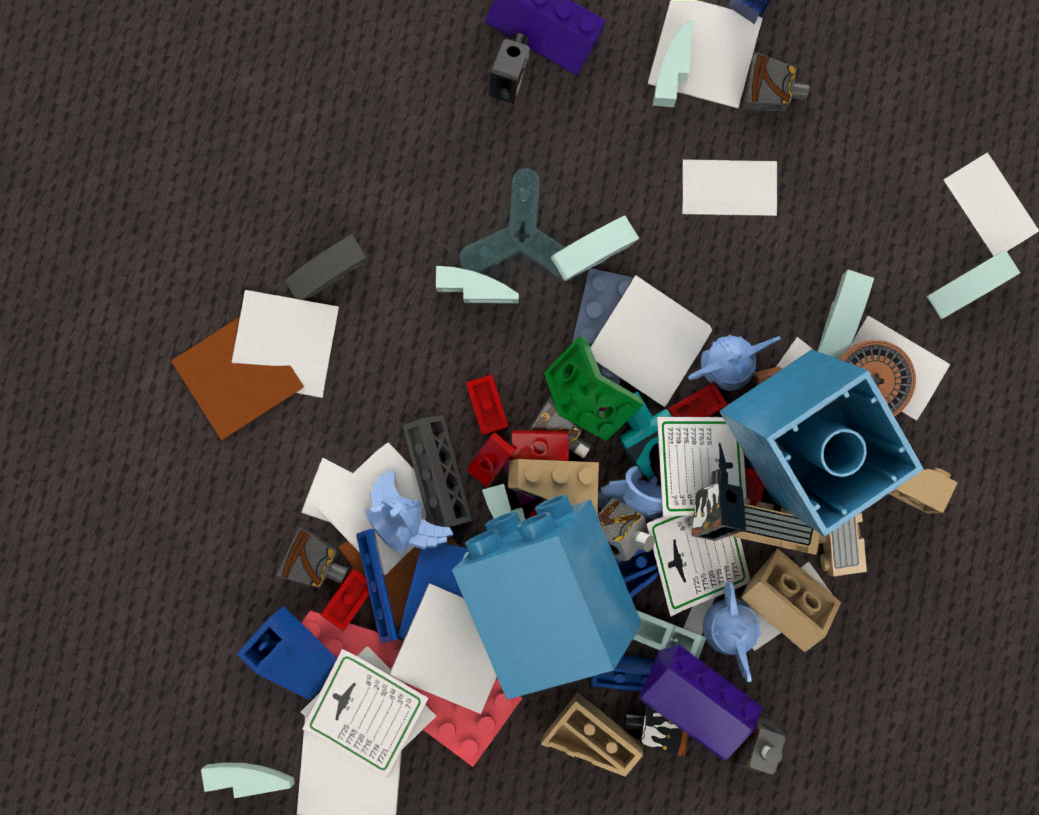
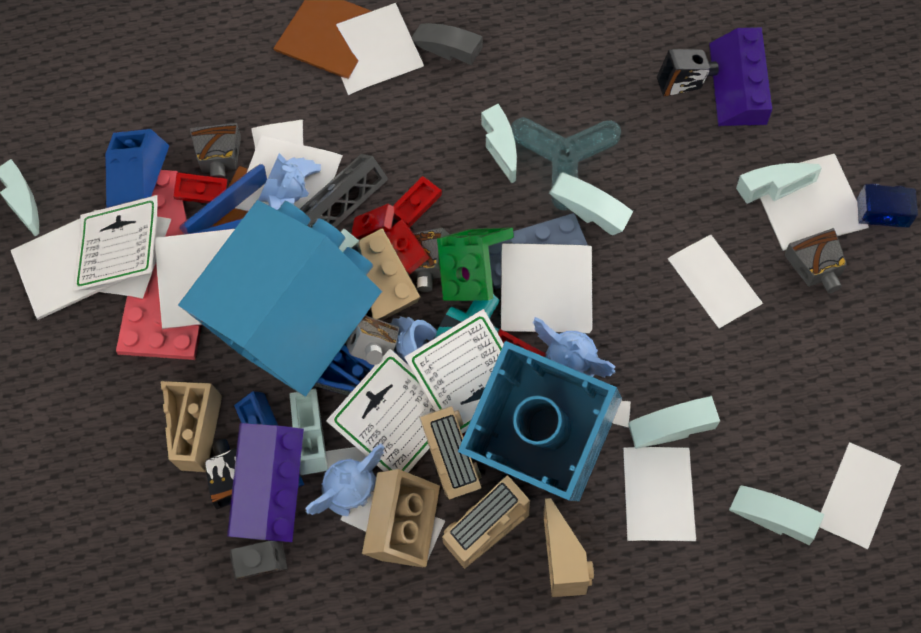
camera: 65 degrees right, 20 degrees down
(718, 509) = (437, 396): black torso -> none
(889, 365) = (657, 484): piece -> none

